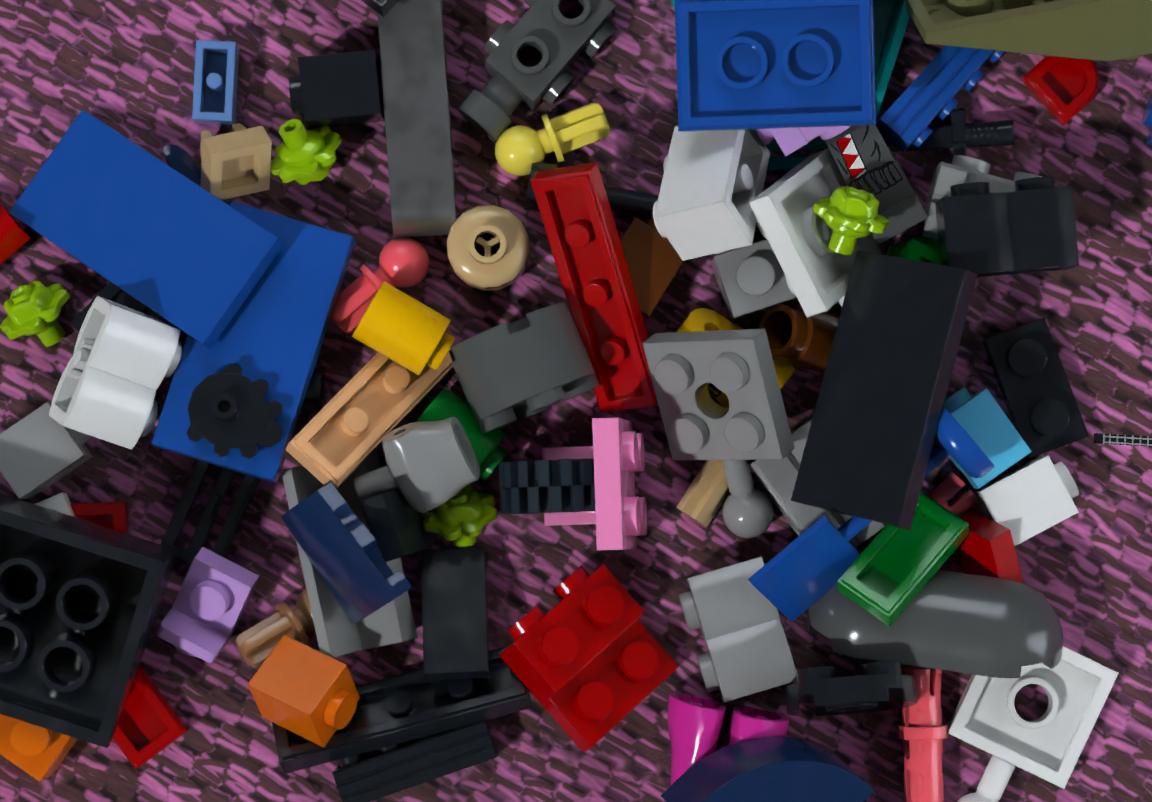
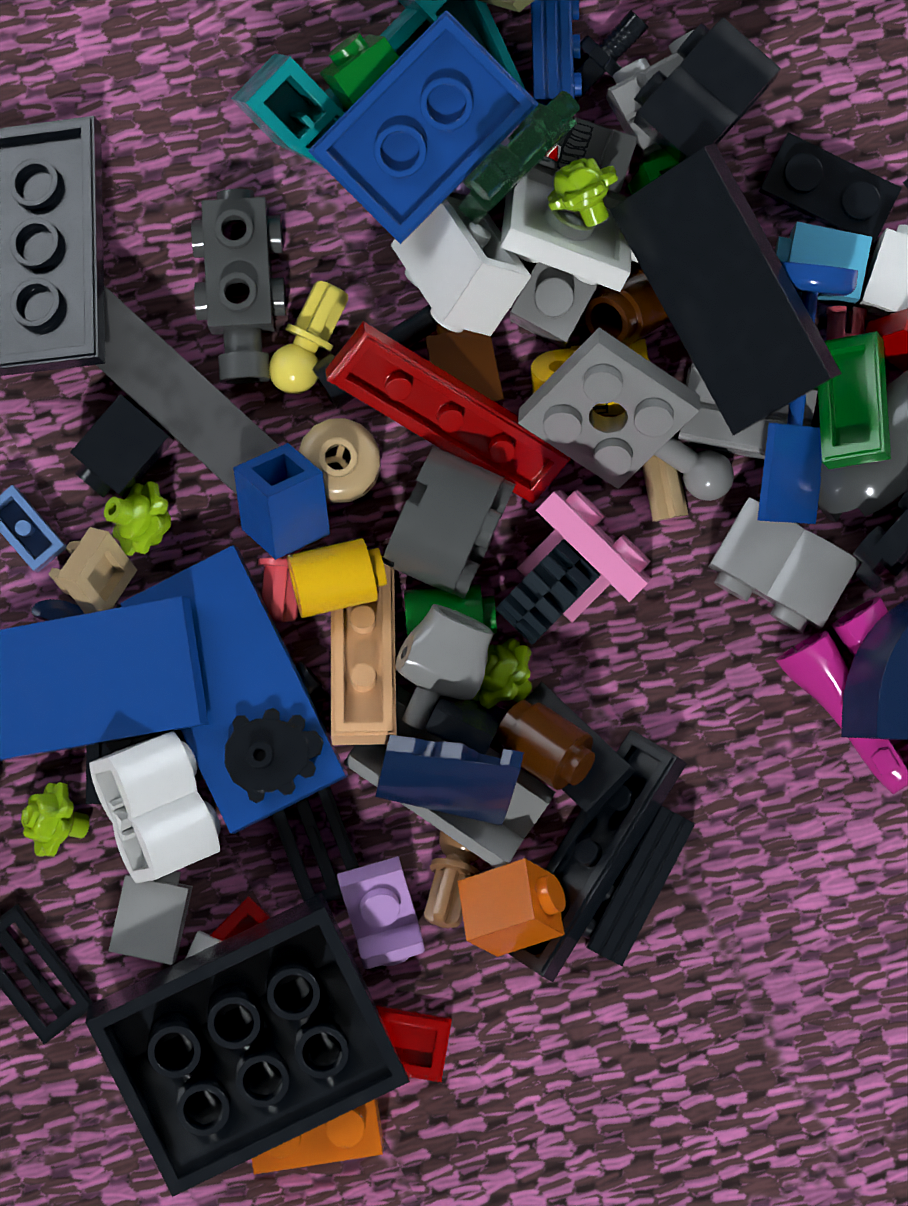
camera: 40 degrees left, 0 degrees up
(416, 237) = (281, 501): none -> blue brick
(441, 596) = (551, 744): none -> reddish brown brick
(588, 655) = (691, 687): red plate -> none
(839, 148) = (511, 163): none -> clear green plate

